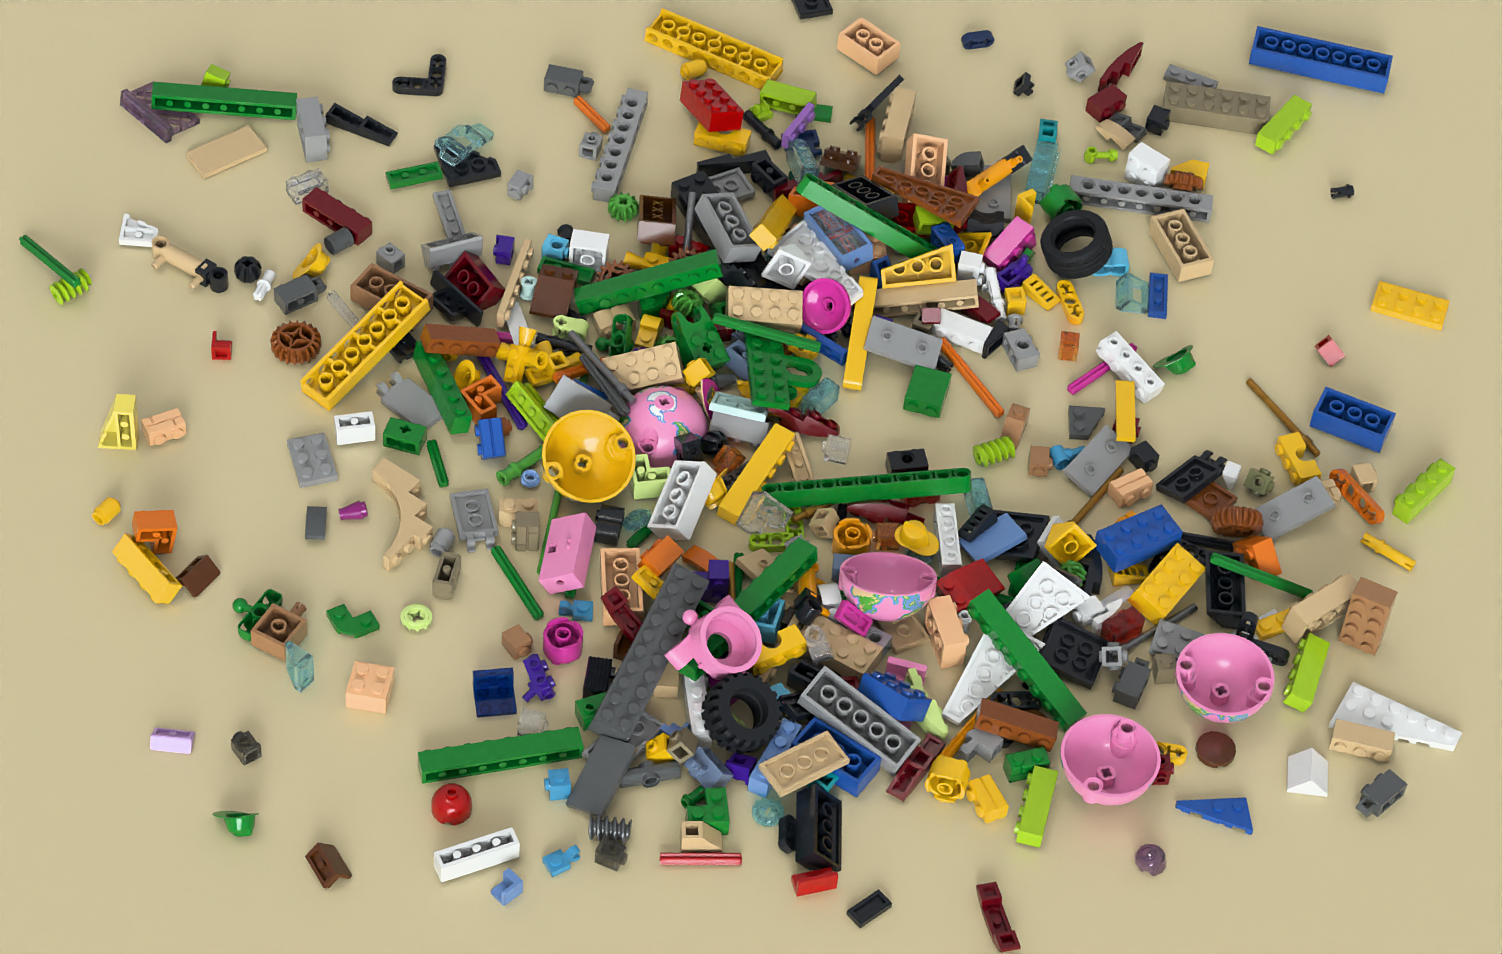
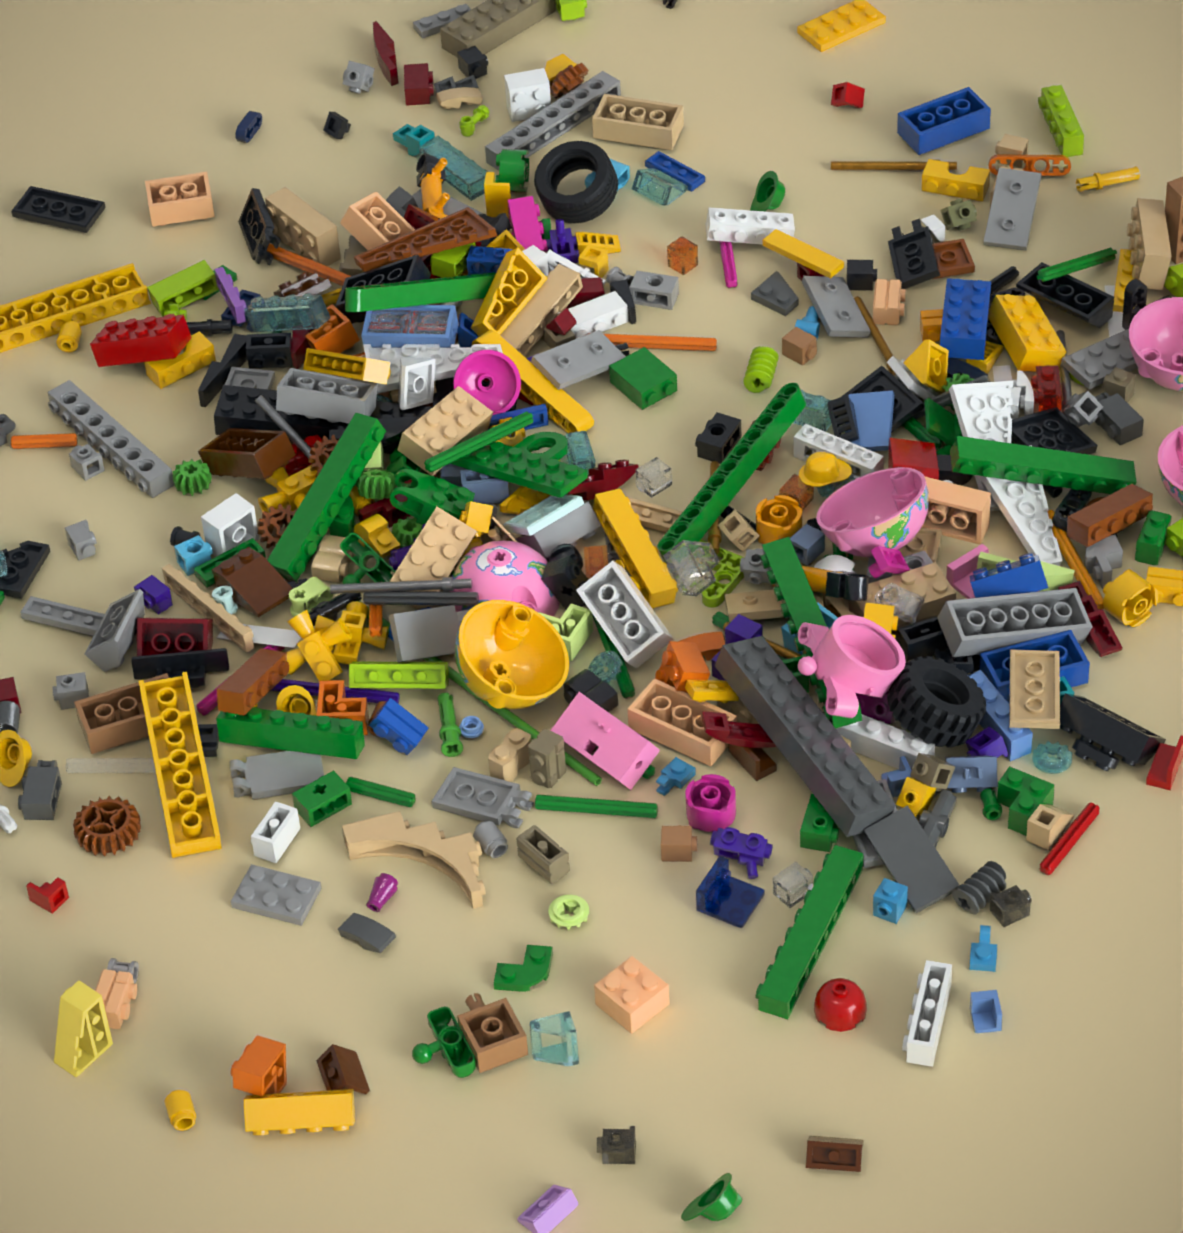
camera: 45 degrees left, 5 degrees down
(190, 419) = (117, 966): none -> light grey bush
(598, 676) = (779, 802): black brick -> none
(877, 510) = (764, 479): dark red slope -> none
(1016, 423) = (739, 337): medium nougat slope -> none
(1068, 309) = (640, 233): yellow beam -> none
(1237, 522) = (998, 249): dark orange gear -> none
(1259, 553) = (1044, 249): orange brick -> none

